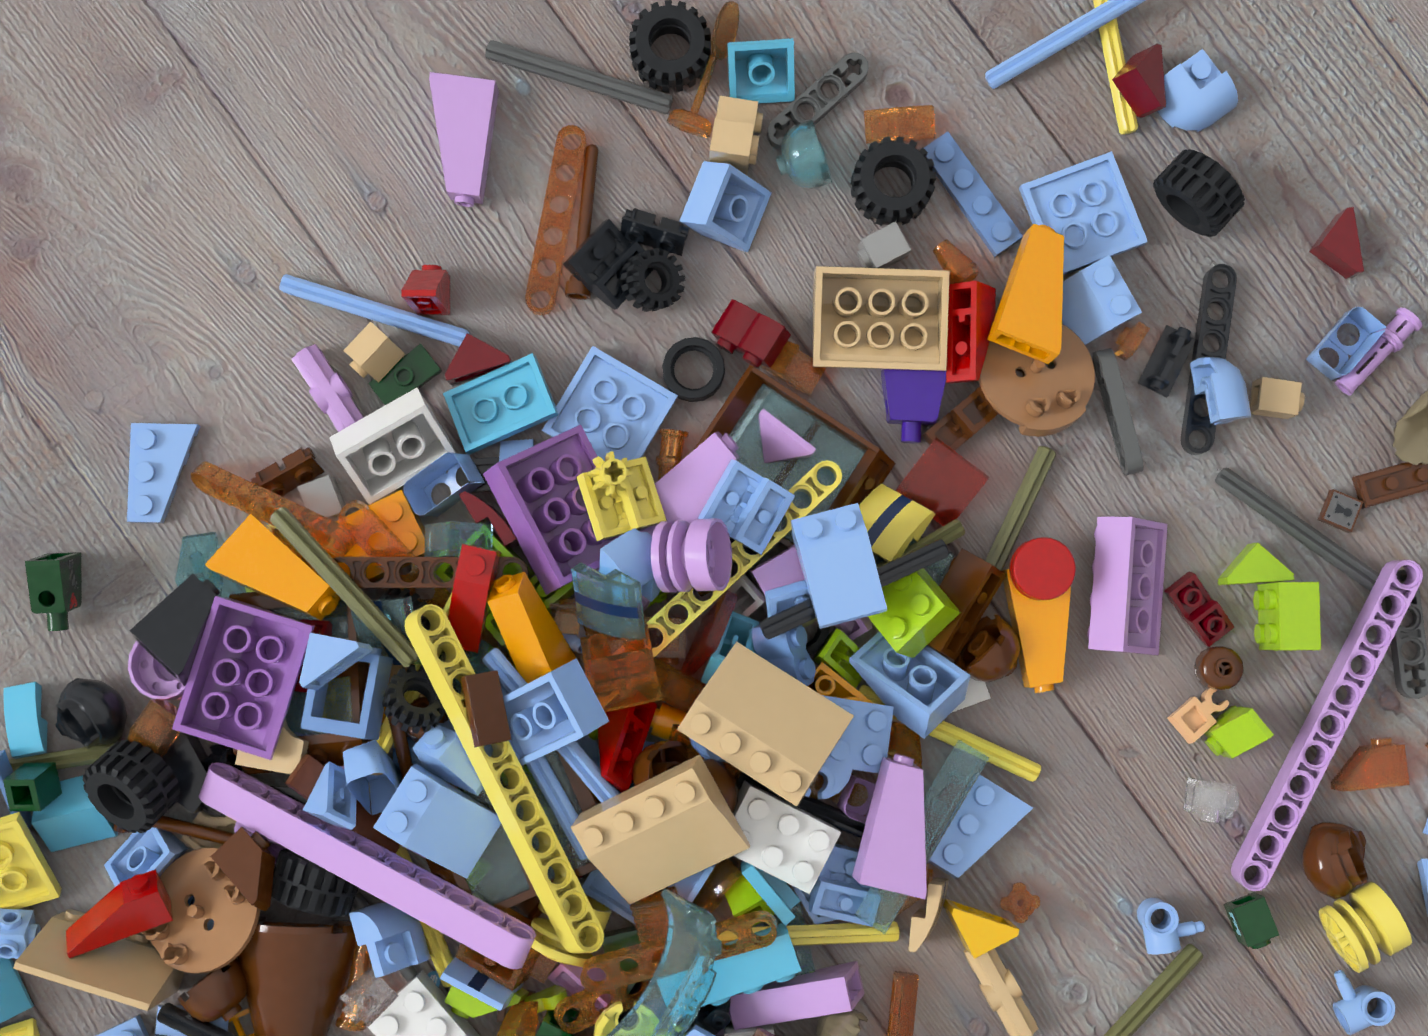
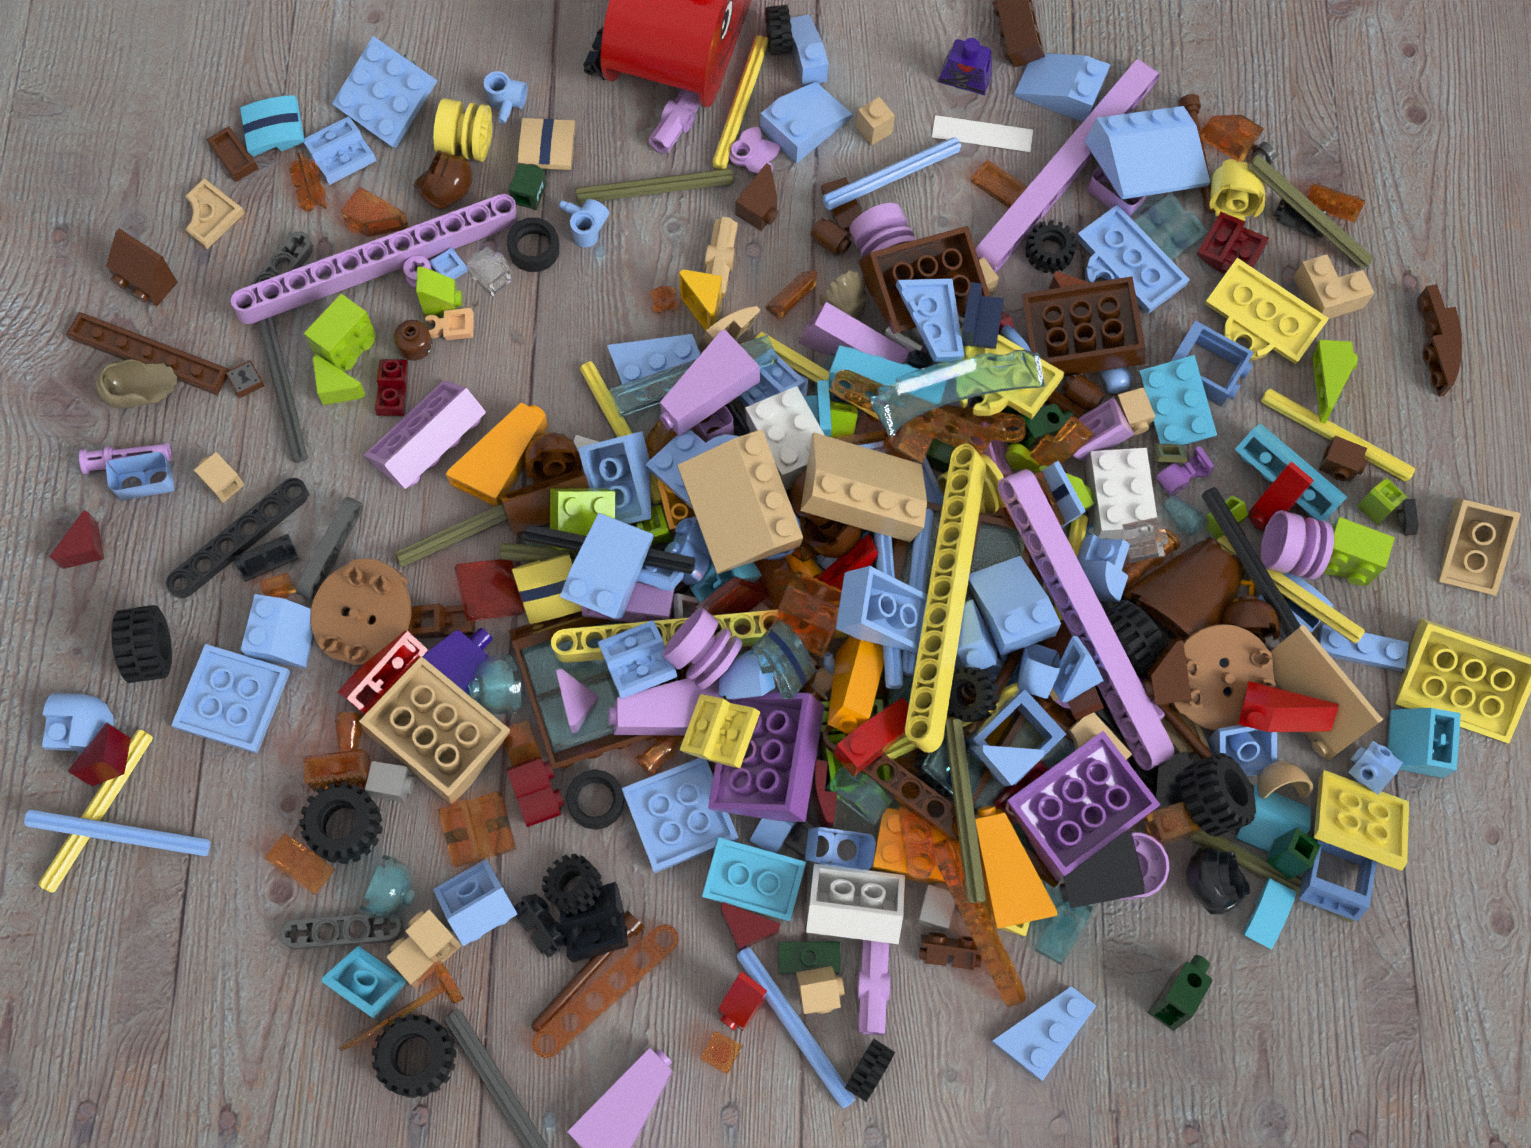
camera: 140 degrees left, 15 degrees down
(91, 855) = (1280, 774): none -> tan helmet
(280, 317) = (870, 1070): none -> black tyre
(419, 242) = (721, 1052): none -> clear orange plate
(485, 708) = (924, 642): reddish brown tile -> none
(614, 466) = (718, 740): light yellow gear -> none
(775, 269) = (477, 829): none -> clear orange slope
(859, 396) = (495, 685): none -> clear light blue cylinder
(935, 220) = (336, 767): none -> clear orange brick
(972, 195) = (291, 789): medium blue plate -> none
(1033, 297) = (317, 659): light orange slope -> none
(1042, 569) = (472, 477): red head -> none
(1215, 873) = (533, 226): none -> black tyre
(1223, 389) = (249, 499): light blue brick -> none
(1255, 774) = (448, 264): none -> light blue tile
(1273, 983) = (547, 143): none -> tan slope
(1286, 749) = (410, 268): none -> lavender wheel

